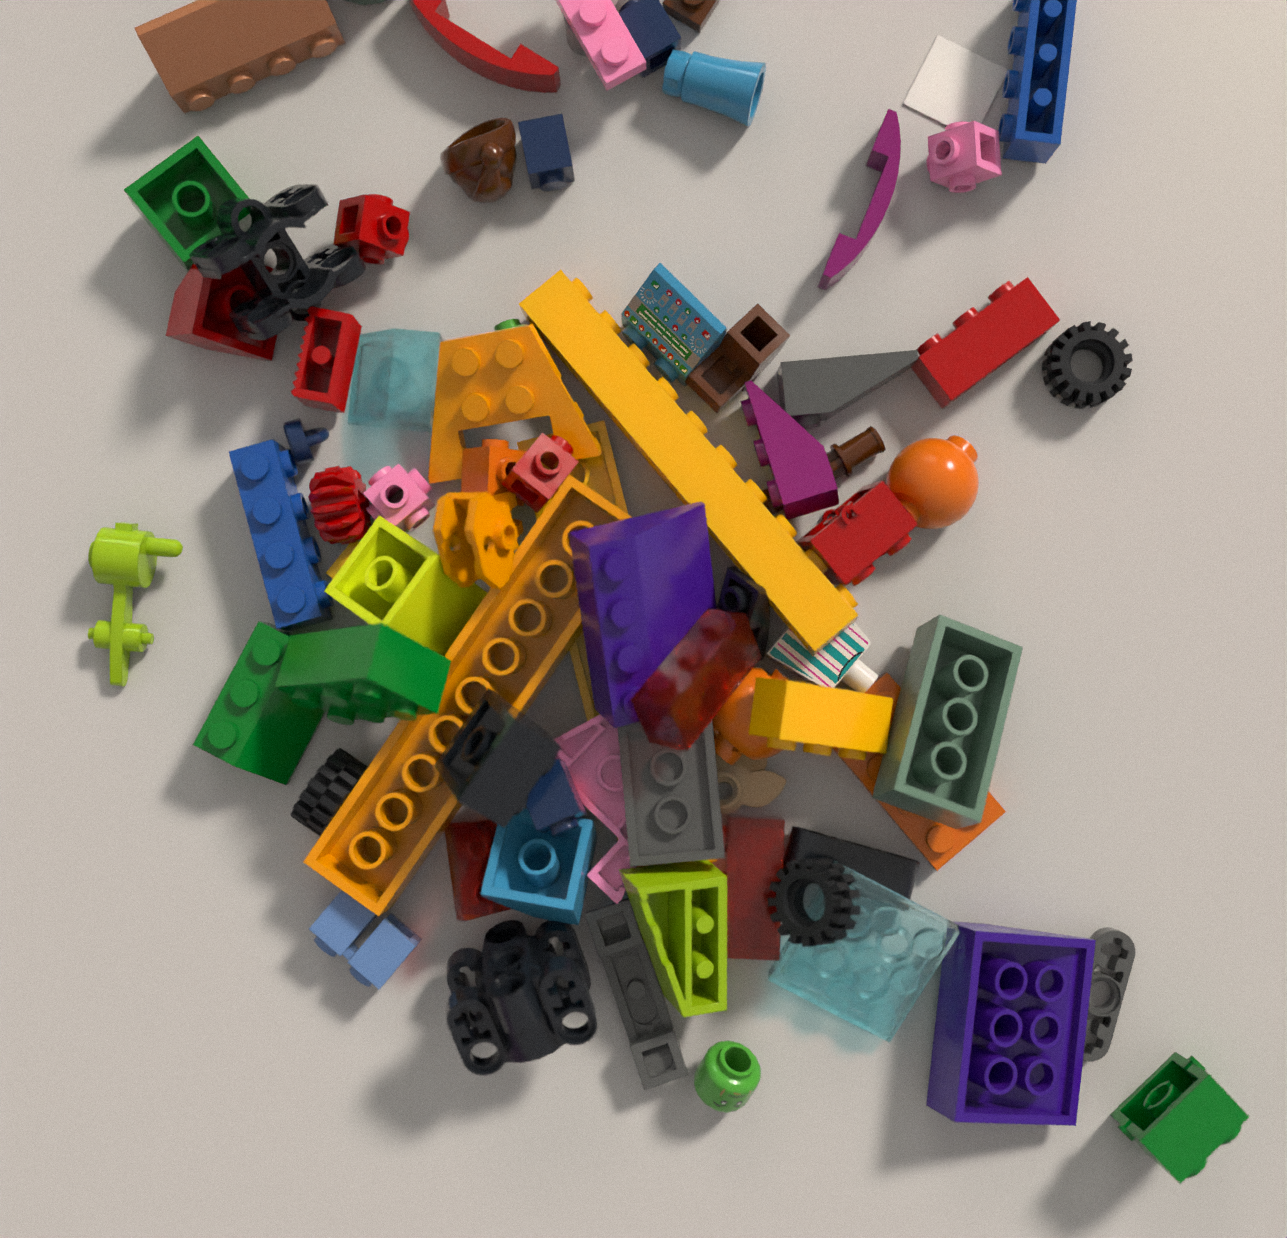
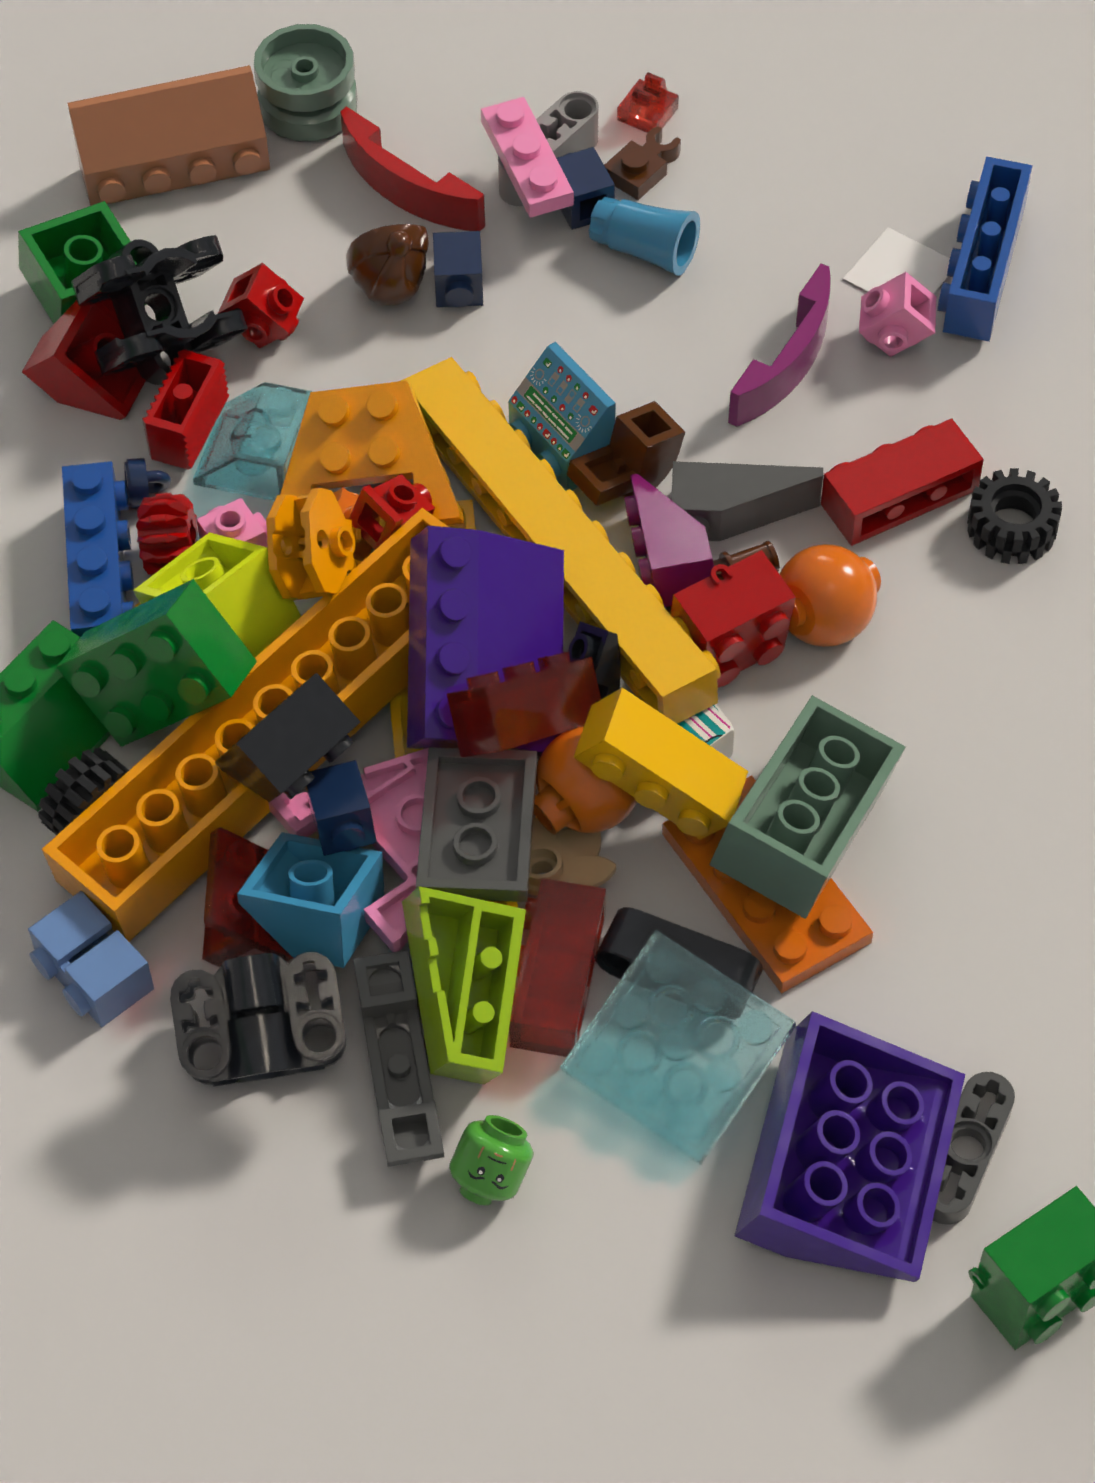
camera: 10 degrees right, 30 degrees down
(791, 906) = (620, 976): black tyre -> none

